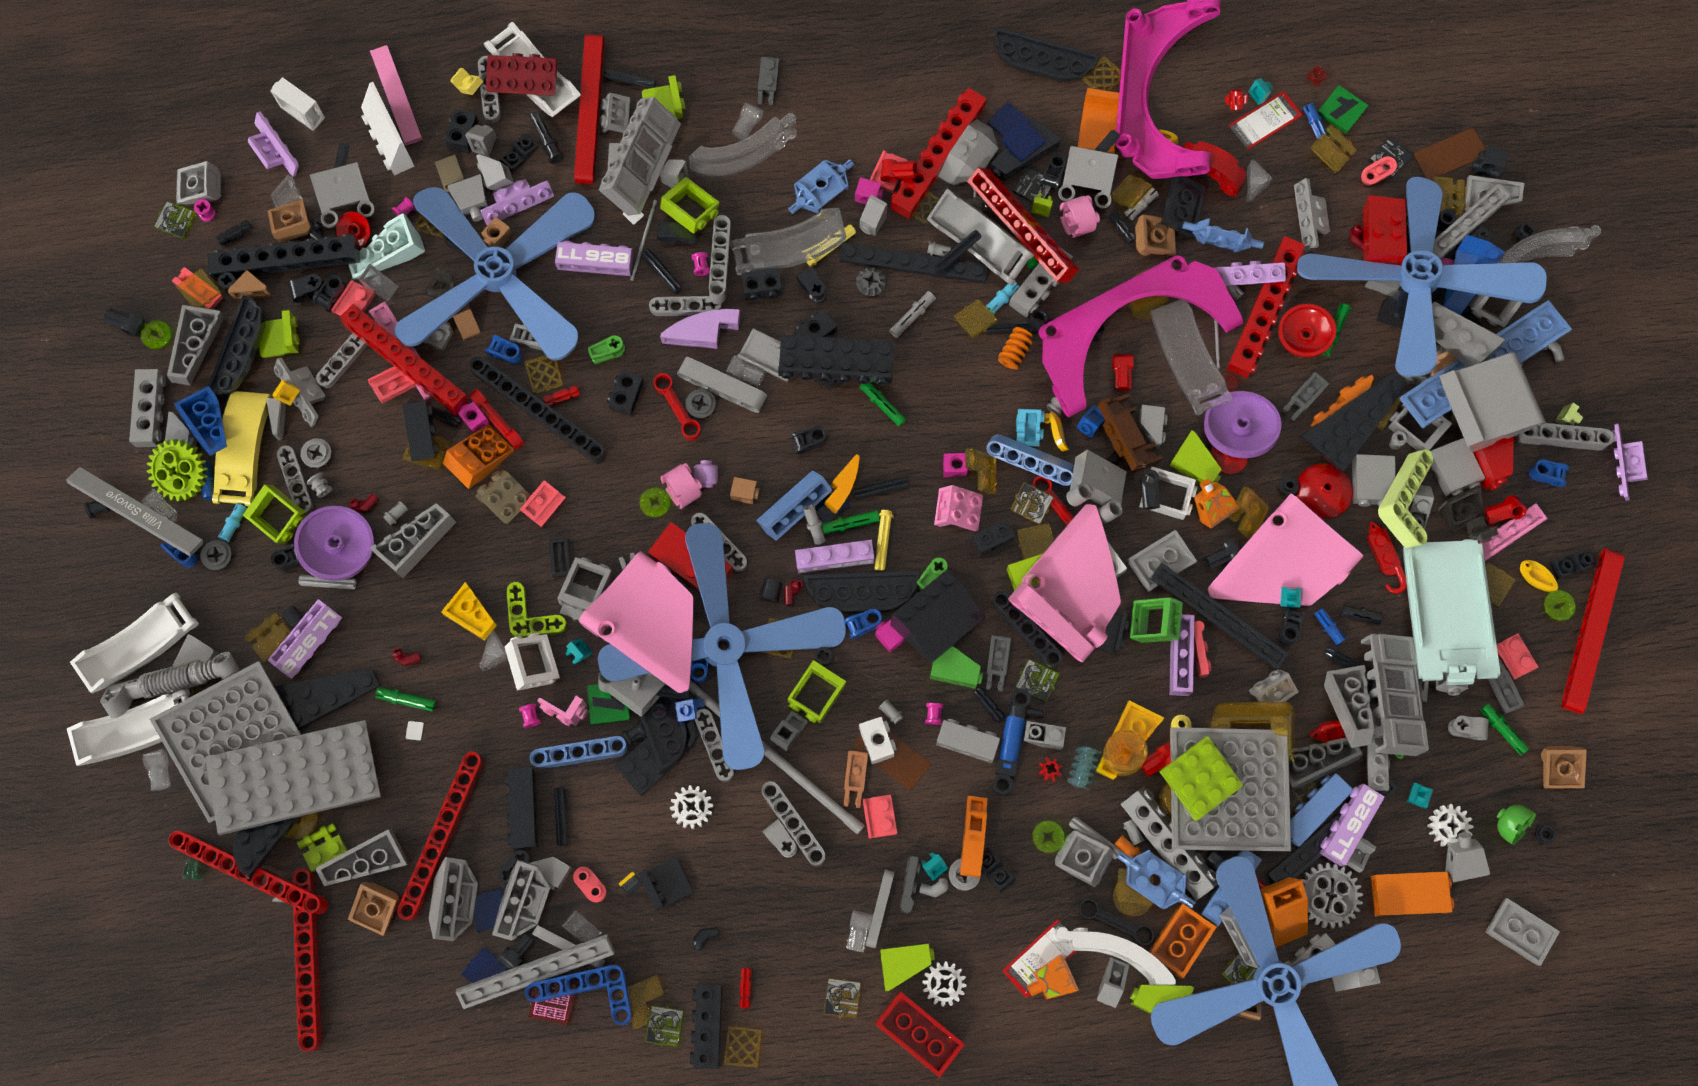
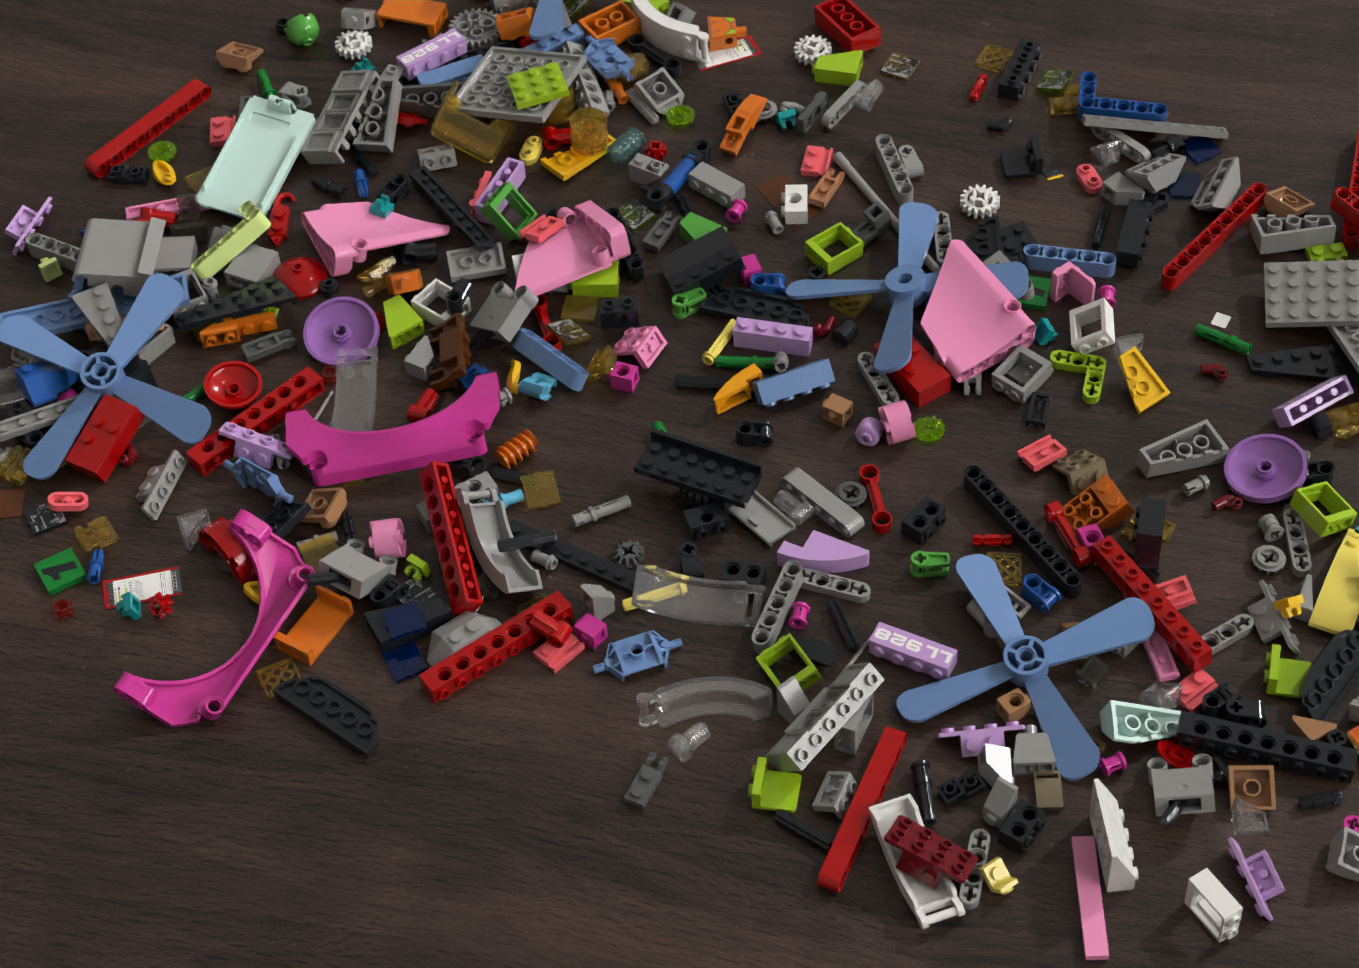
camera: 155 degrees left, 25 degrees down
(1112, 606) = (541, 228): none -> coral plate

